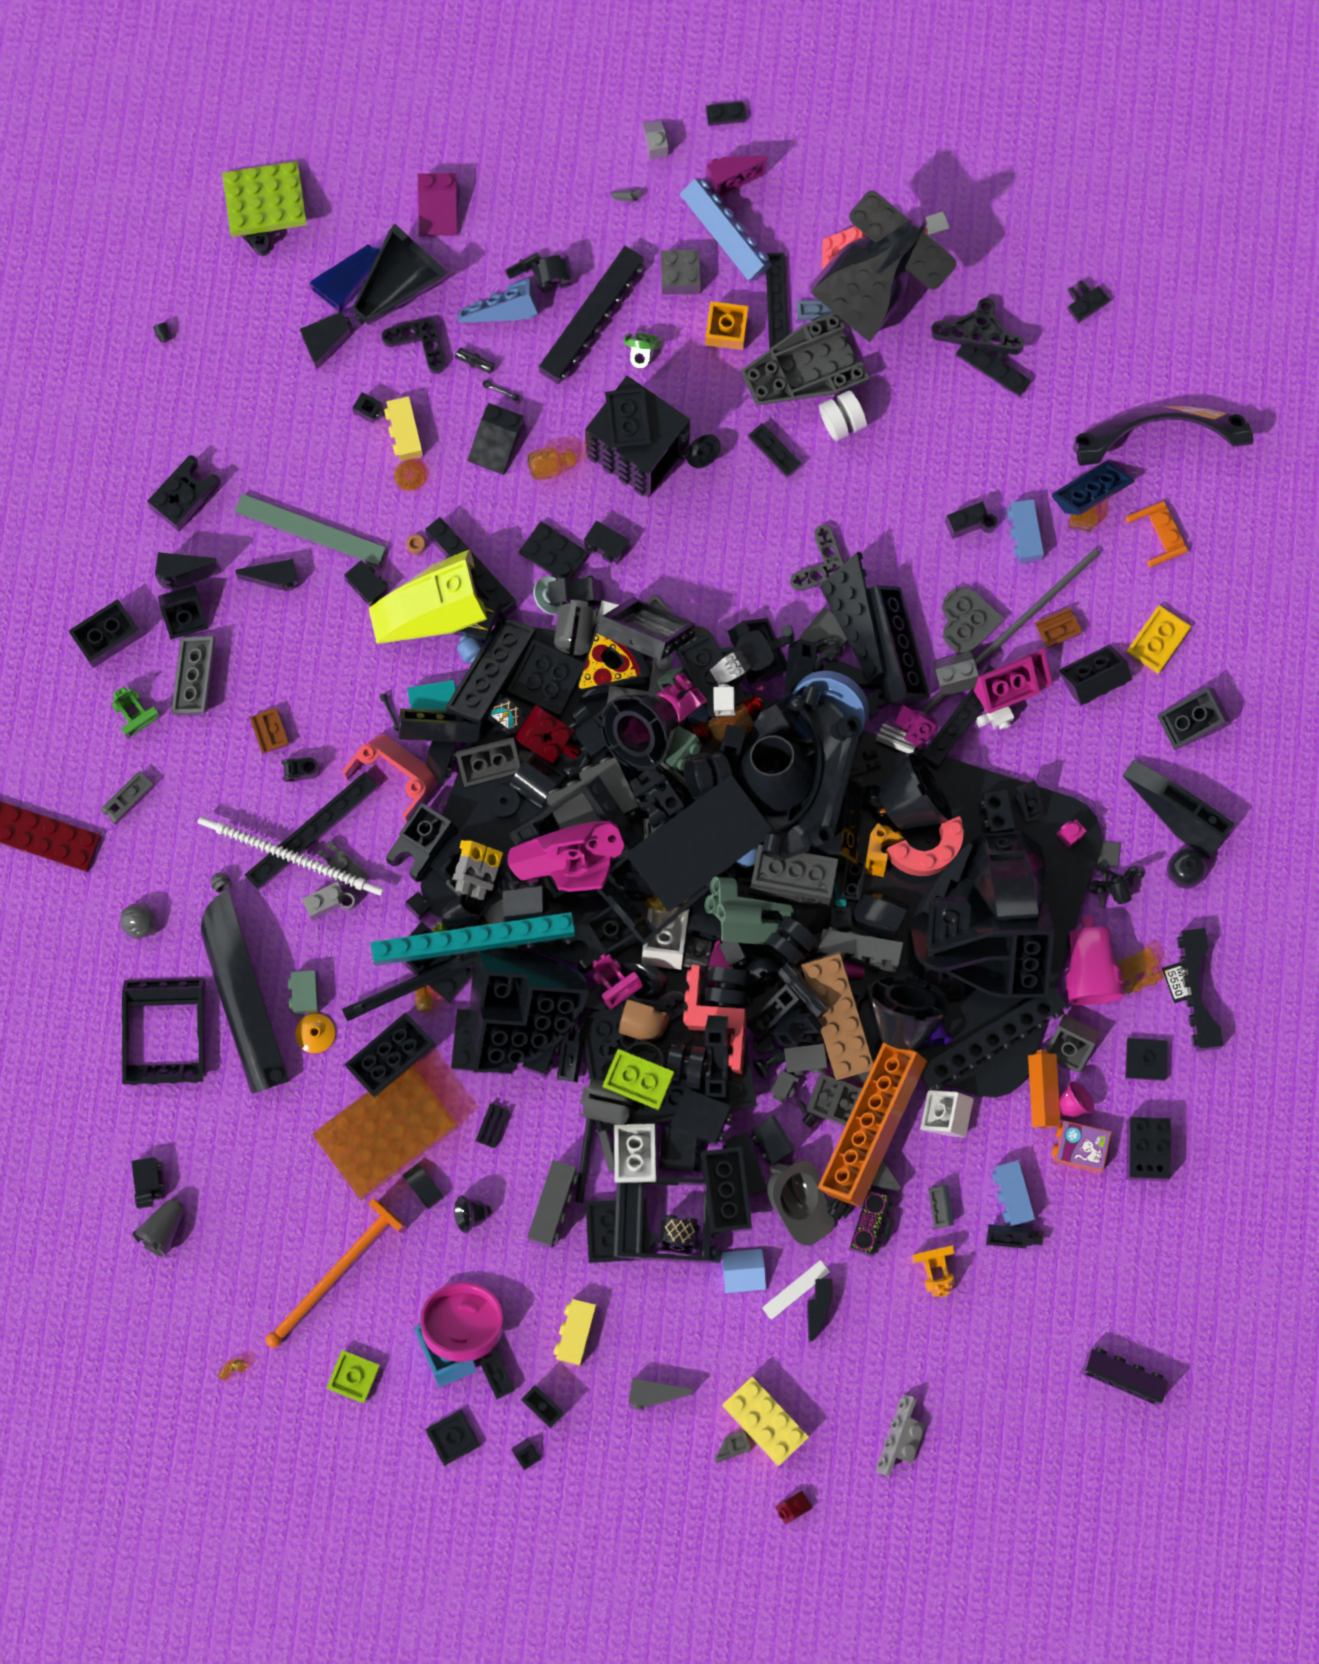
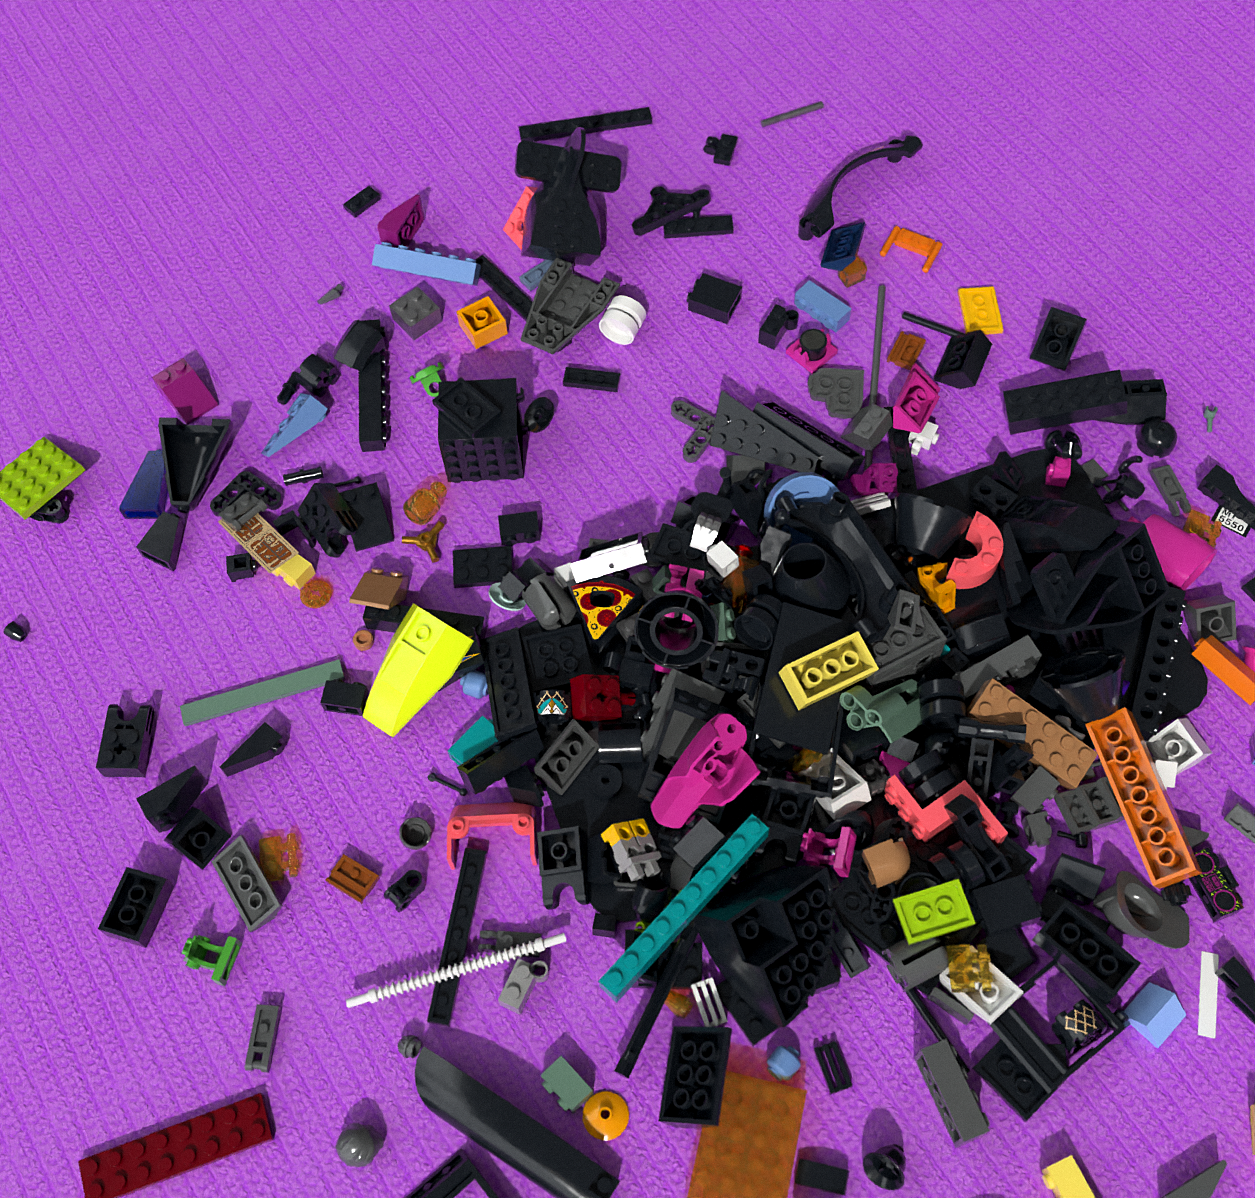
camera: 35 degrees left, 15 degrees down
(225, 669) = (271, 856): none -> clear yellow plate
(337, 732) = (415, 833): none -> dark grey hair
(397, 393) = (263, 542): none -> sticker
(407, 354) = (242, 511): none -> dark grey plate
(430, 394) = (291, 521): none -> black bracket
(432, 1030) = (715, 1022): none -> white tile
(455, 516) = (380, 589): none -> medium nougat slope
(460, 1096) = (783, 1063): none -> medium blue head
(462, 419) = (327, 517): none -> black brick
(526, 496) = (426, 541): none -> pearl gold piece
(602, 274) = (359, 346): none -> black slope
(629, 1133) = (961, 969): none -> clear yellow plate
(655, 139) = (324, 246): light grey slope -> none
(697, 721) = (709, 585): none -> black hinge
(716, 853) = (828, 670): none -> light yellow brick
(810, 858) = (907, 613): none -> dark grey slope
(871, 1031) = (1065, 723): none -> flat silver plate
(913, 1120) = (1167, 770): none -> white brick
(942, 452) = (714, 298): none -> black brick
(980, 563) = (812, 347): none -> piece
(986, 180) = (591, 124): none -> black plate
(1094, 820) = (1065, 446): none -> black piece
(1108, 629) = (931, 325): none -> black piece
(1133, 779) = (1065, 402): none -> black brick
(1153, 916) = (1170, 489): none -> dark grey hinge
(1182, 312) = (792, 114): none -> flat silver bar
(1252, 884) = (1209, 415): none -> sand green hand

